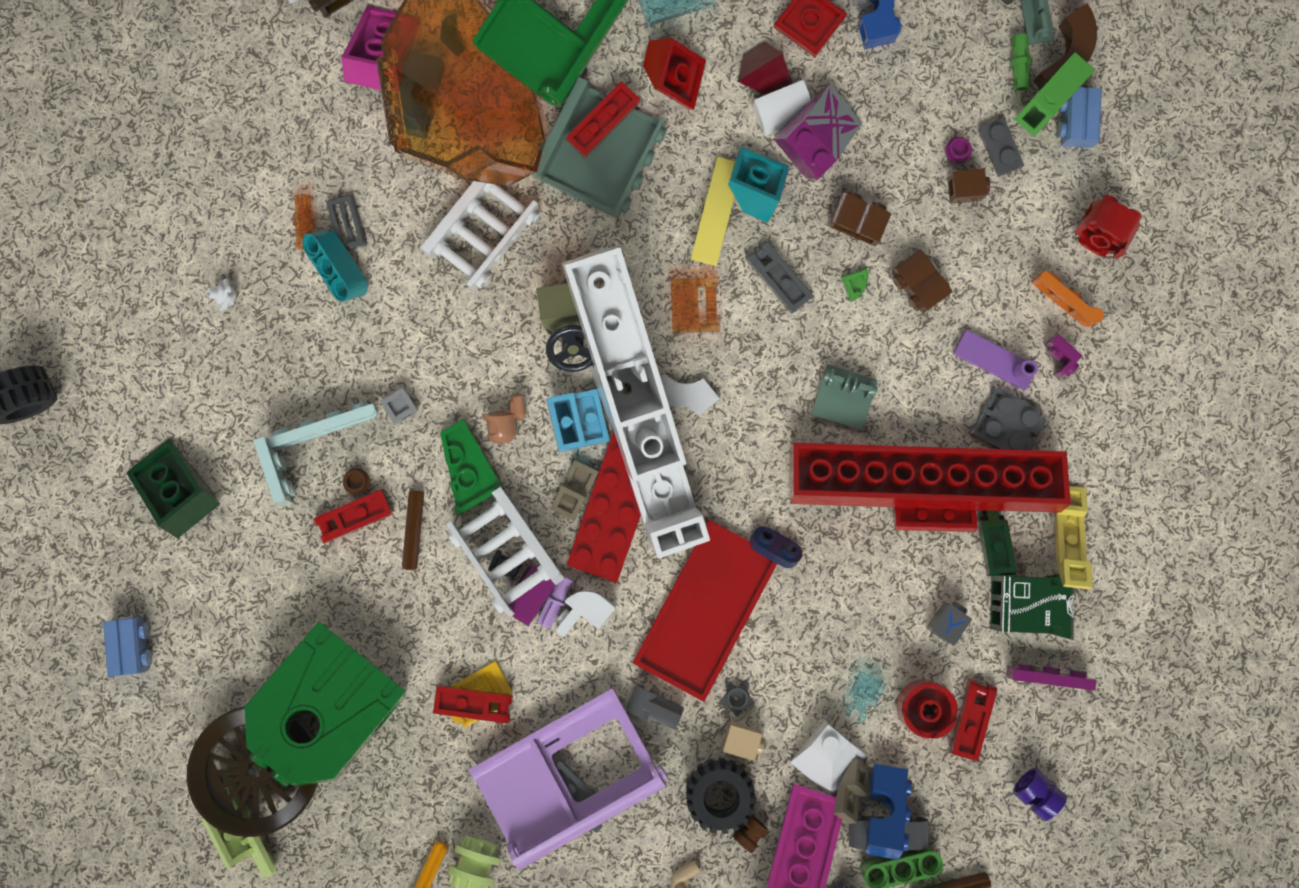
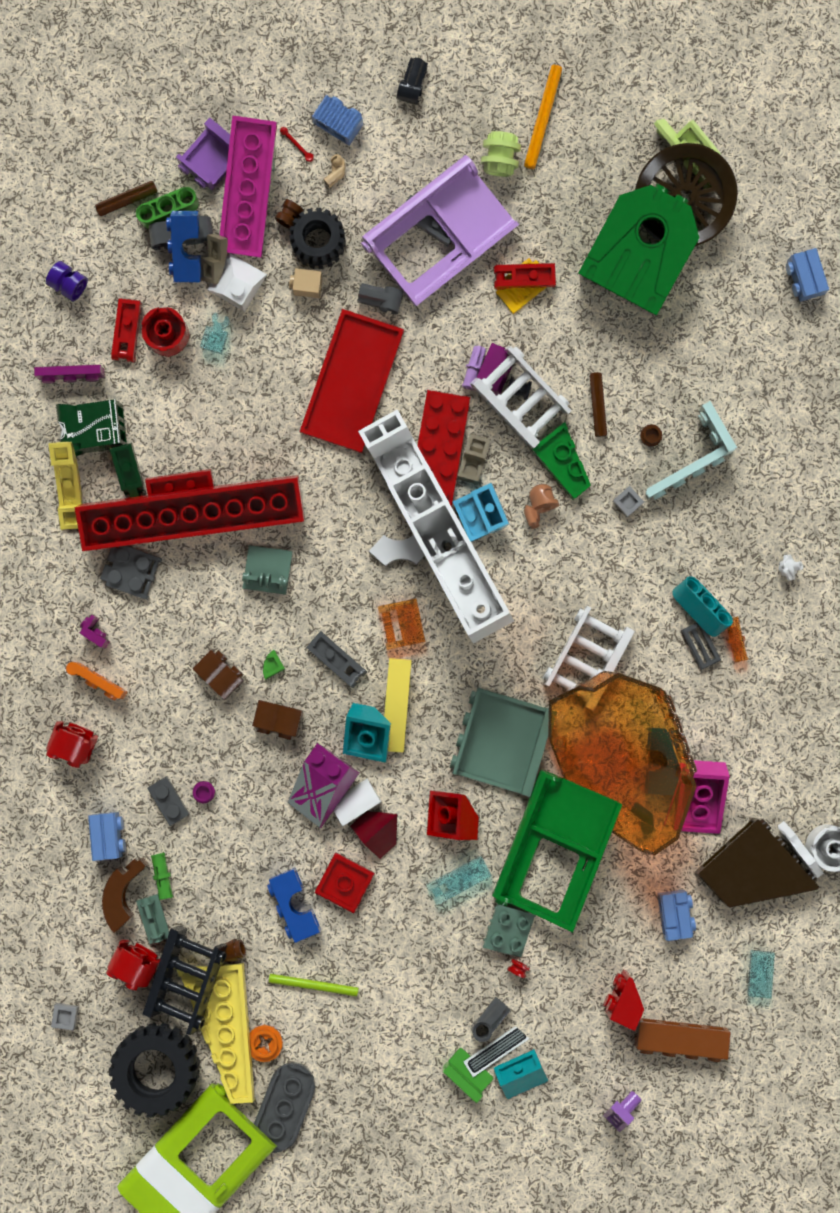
camera: 175 degrees right, 0 degrees up
(172, 489) = (797, 403): dark green slope -> none
(354, 516) = (647, 407): red plate -> none
(563, 324) = (510, 588): piece -> none
(587, 604) = (448, 368): white brick -> none
(603, 119) = (503, 765): red plate -> none
(737, 705) = (310, 316): dark grey plate -> none
(775, 547) = (304, 438): dark blue plate -> none
(949, 622) = (156, 402): dark grey brick -> none
(968, 186) = (191, 761): reddish brown brick -> none
(995, 360) = (148, 621): medium lavender piece -> none
(1054, 94) = (131, 846): bright green slope -> none

